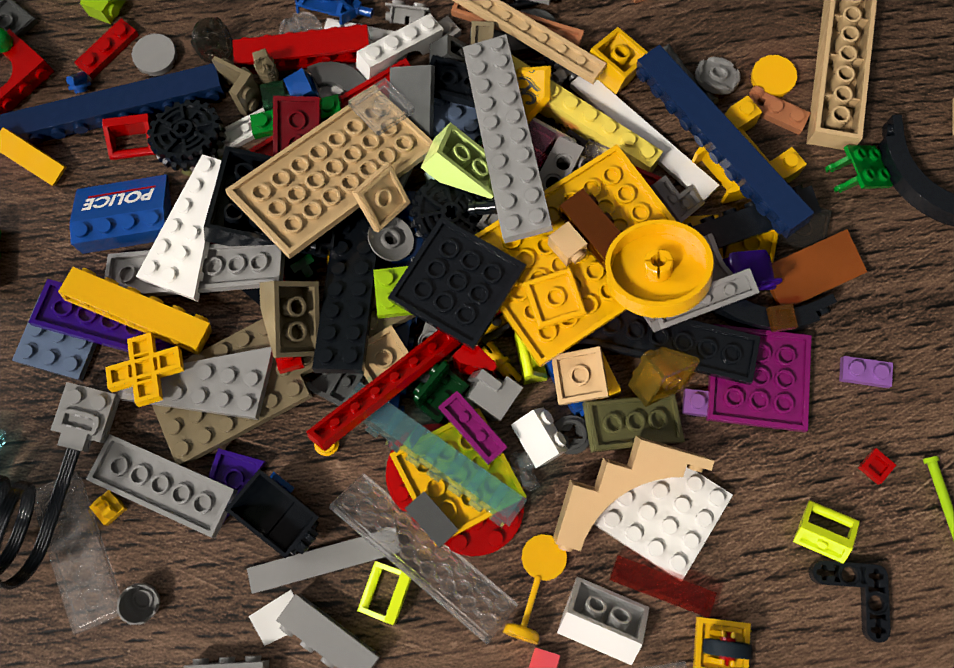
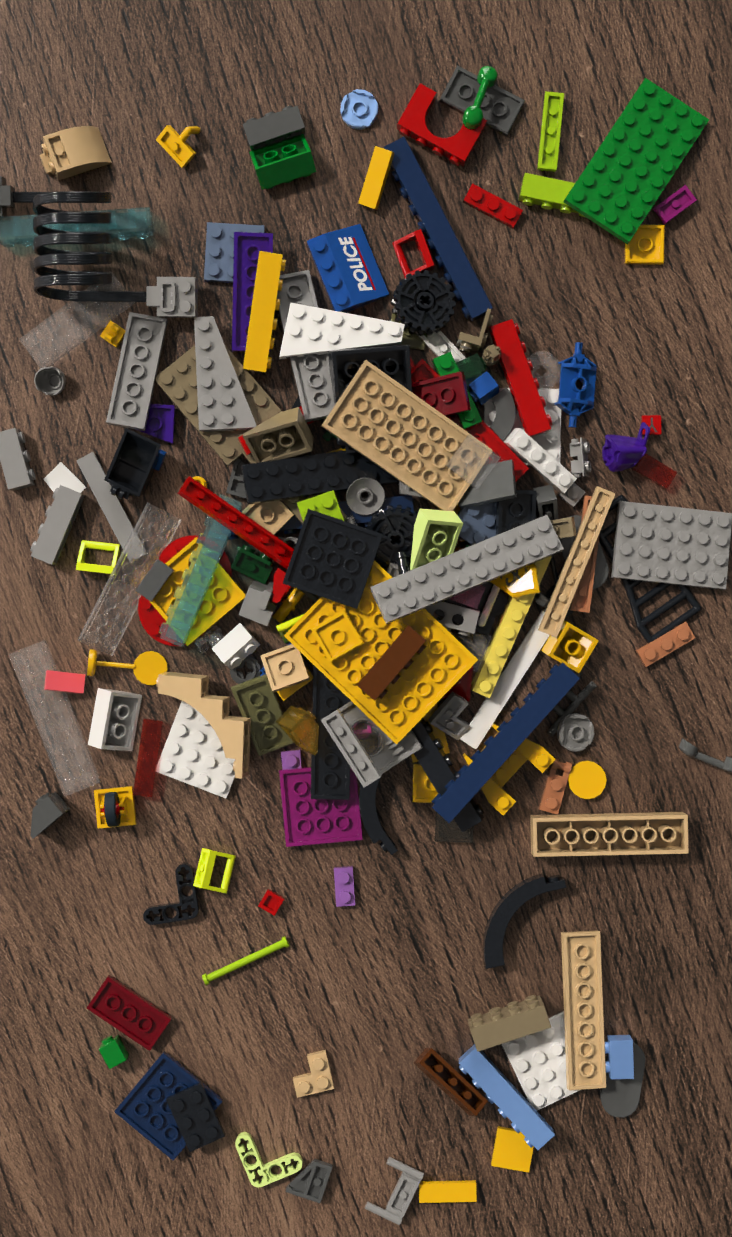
camera: 75 degrees right, 15 degrees up
(78, 82) = (453, 195): blue plate -> none
(144, 369) = (217, 334): yellow plate -> none
(154, 54) = (495, 249): light grey tile -> none
(211, 39) = (514, 298): clear smoke plate -> none
(381, 197) = (390, 483): tan tile -> none
(472, 427) = (227, 595): magenta plate -> none
(567, 244) = (380, 638): tan brick -> none
(683, 263) = (354, 726): yellow piece -> none
(759, 264) = (398, 784): dark purple piece -> none
(782, 317) = (367, 813): clear orange tile -> none
(816, 269) = (417, 834): dark orange tile -> none
(868, 167) = (515, 866): green plate -> none

